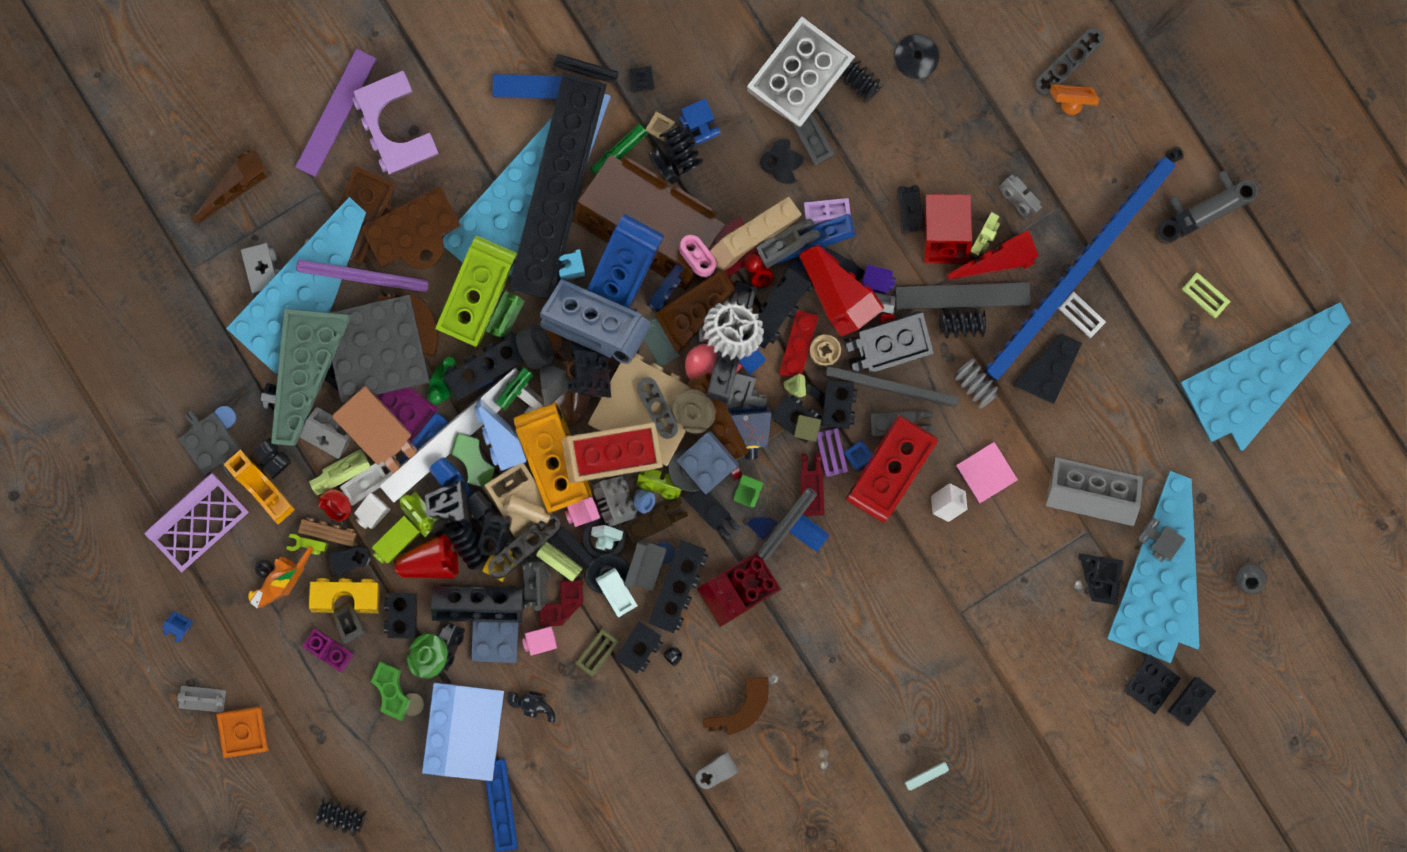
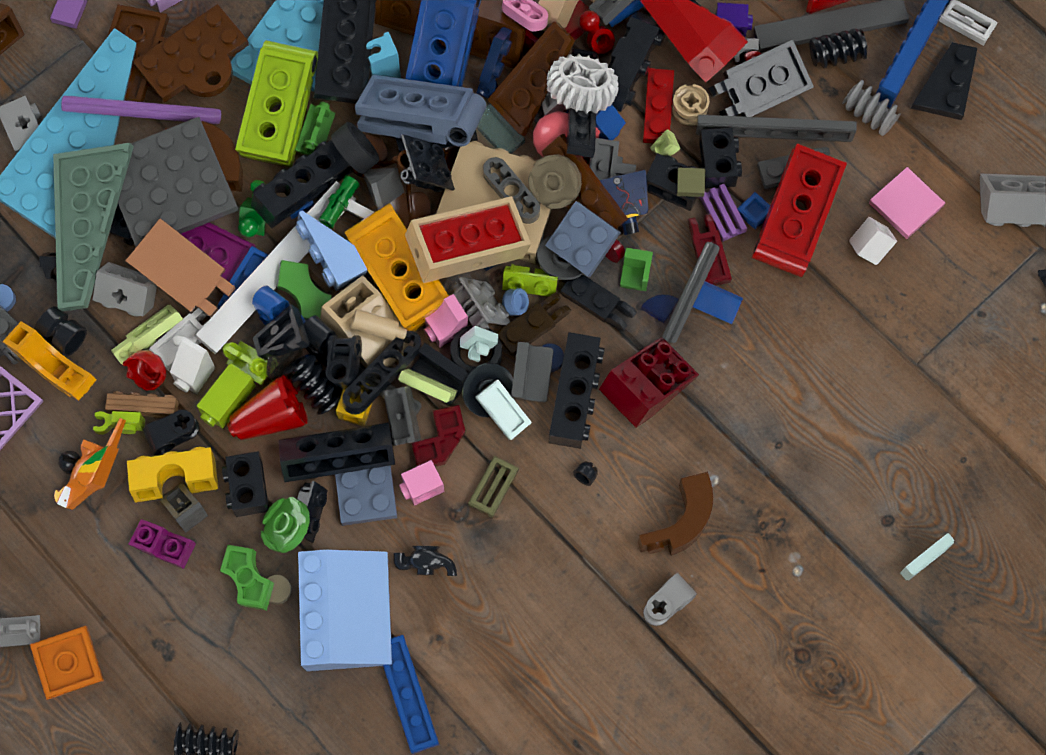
camera: 10 degrees left, 15 degrees down
(640, 634) = (543, 453): black brick -> none
(814, 392) = (687, 150): black tile -> none

